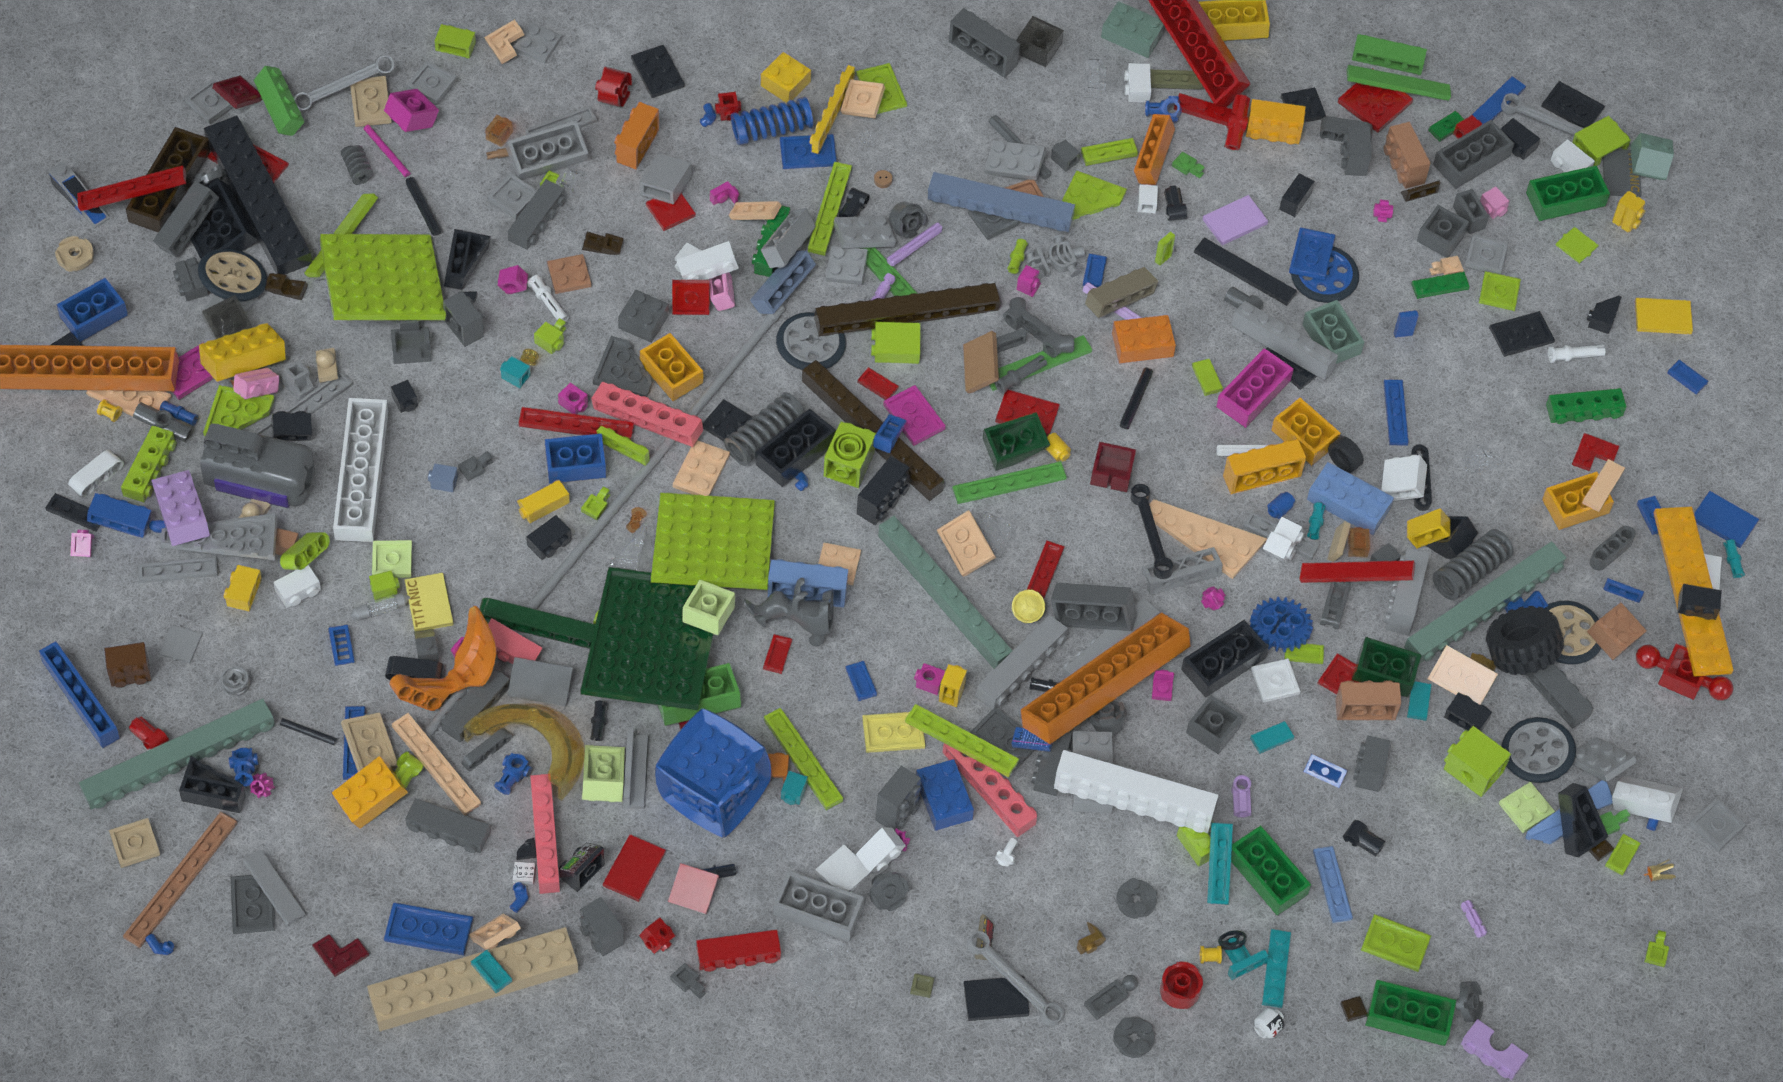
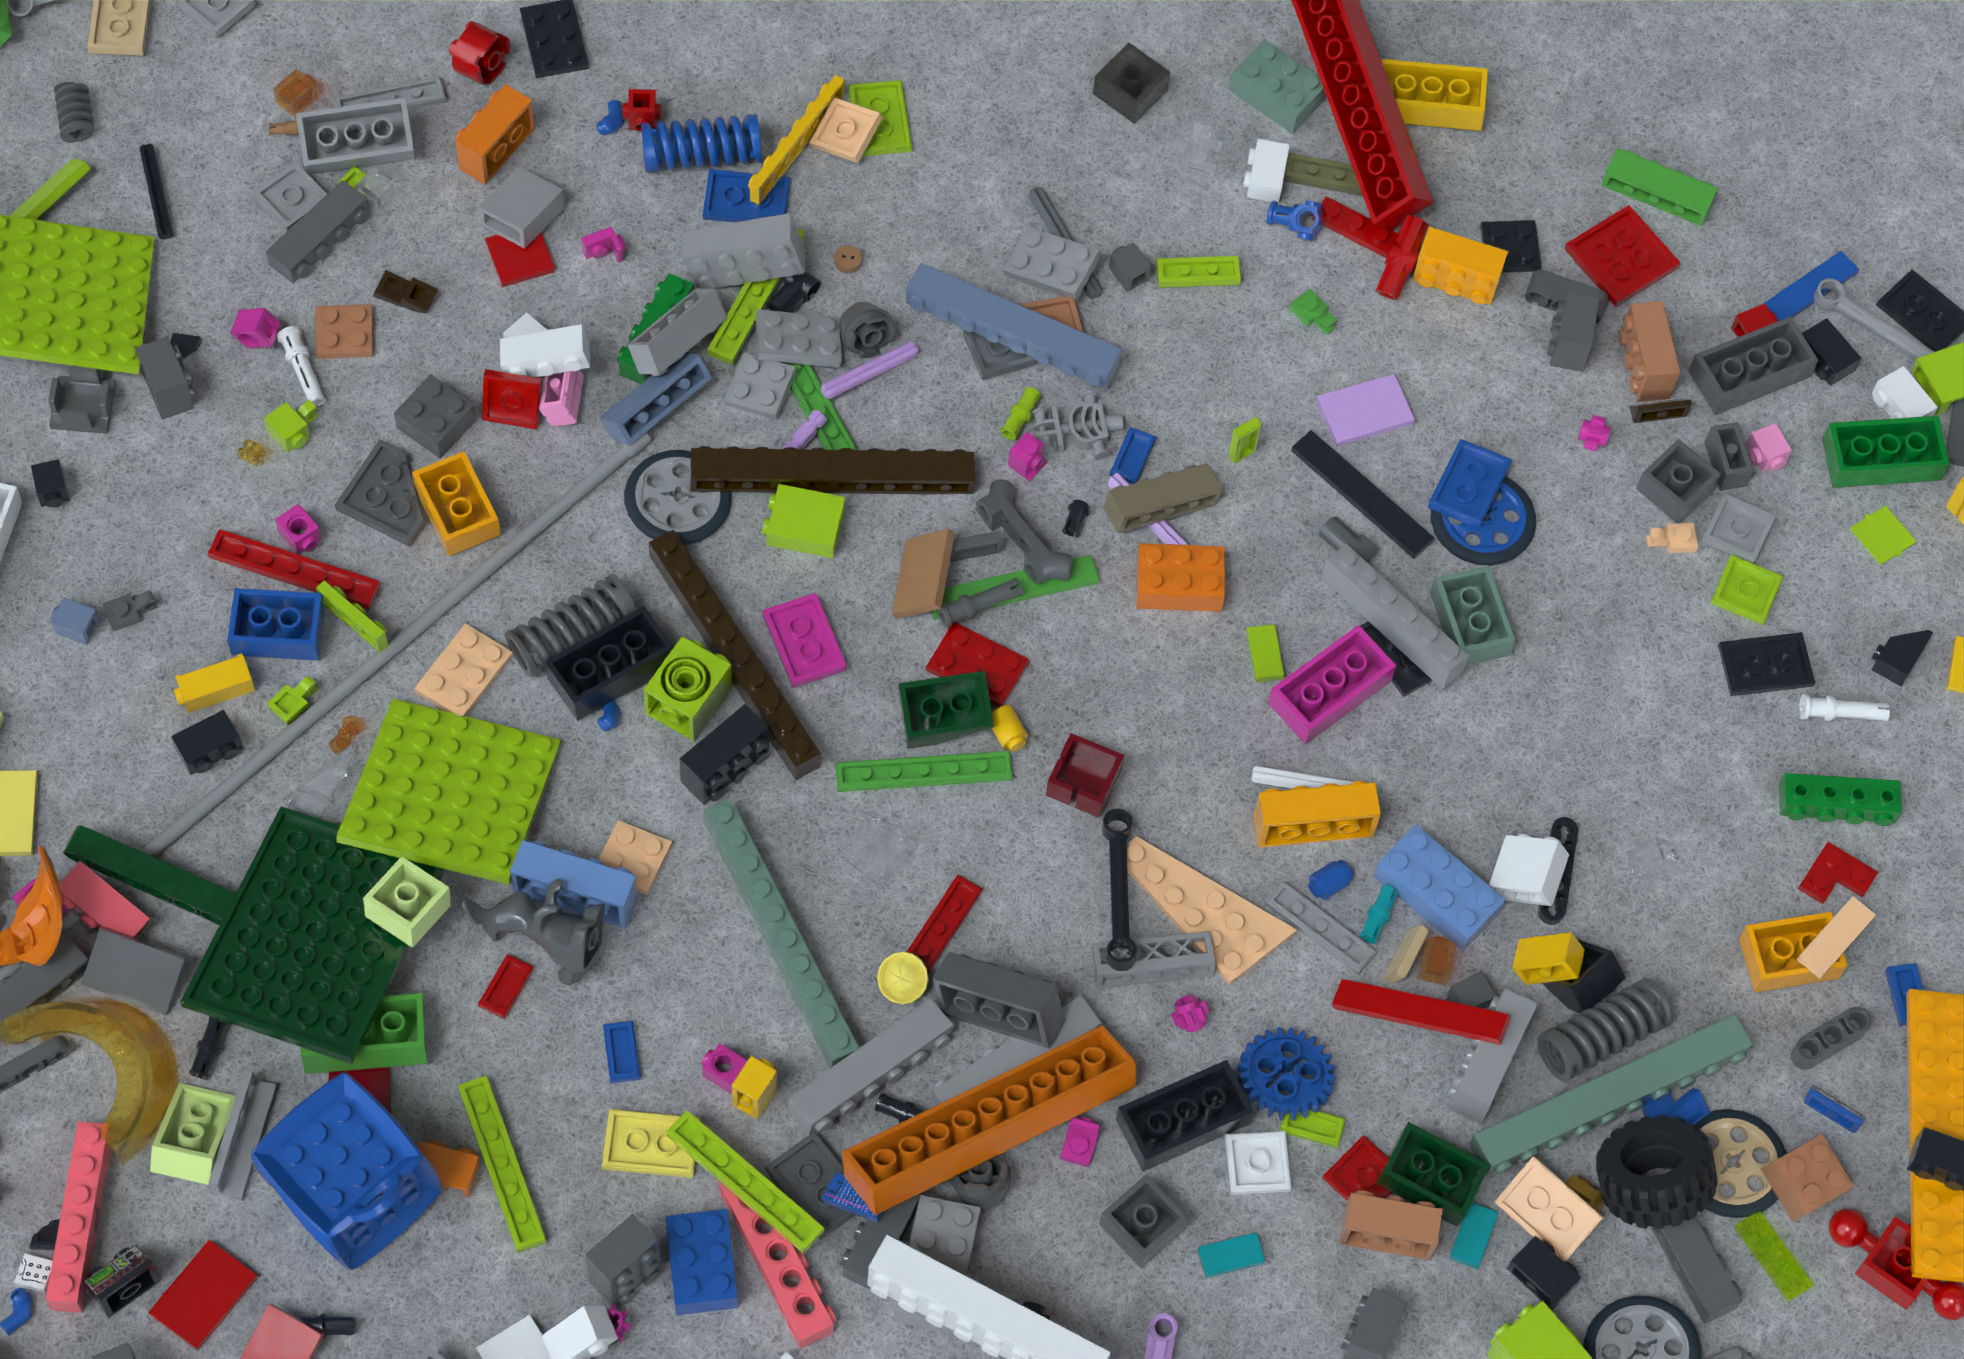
camera: 10 degrees right, 5 degrees up
(386, 150) = (125, 97): dark pink bar -> none
(411, 110) = (171, 41): dark pink brick -> none
(464, 256) = (192, 281): black wedge -> none
(512, 774) = (54, 1111): blue connector -> none
(515, 372) = (223, 472): teal brick -> none
(647, 414) = (451, 614): coral brick -> none
(725, 420) = (519, 600): black plate -> none
(755, 210) = (641, 279): light nougat tile -> none
(785, 77) = (739, 79): yellow brick -> none
(794, 788) = (474, 1210): teal brick -> none
(818, 182) = (743, 252): none -> light grey brick
(877, 384) = (762, 580): red tile -> none
(881, 440) = (743, 680): blue slope -> none
(966, 543) = (833, 859): light nougat tile -> none
(984, 42) = (1047, 72): dark grey brick -> none
(1068, 313) = (1077, 512): none -> black pin
(1092, 194) = (1155, 335): lime plate -> none
(1136, 398) = (1148, 669): black axle -> none
(1147, 198) = (1238, 355): white brick -> none
(1154, 149) = (1266, 280): orange brick -> none
(1175, 208) = (1278, 374): black piece -> none
(1283, 540) = (1319, 939): white brick -> none
(1296, 195) = (1467, 386): black brick -> none
(1308, 426) = (1397, 765): light orange brick -> none
(1325, 770) = (1302, 1324): slope -> none
(1335, 603) = (1377, 1054): dark grey plate -> none
(1345, 454) = (1447, 816): black tyre -> none
(1396, 412) = (1542, 758): blue tile -> none
(1398, 82) = (1663, 234): bright green tile -> none
(1405, 324) = (1587, 621): blue tile -> none
(1440, 285) = (1657, 565): green plate -> none
(1445, 126) = (1721, 313): green plate -> none
(1606, 682) = (1773, 1256): none -> clear neon green tile

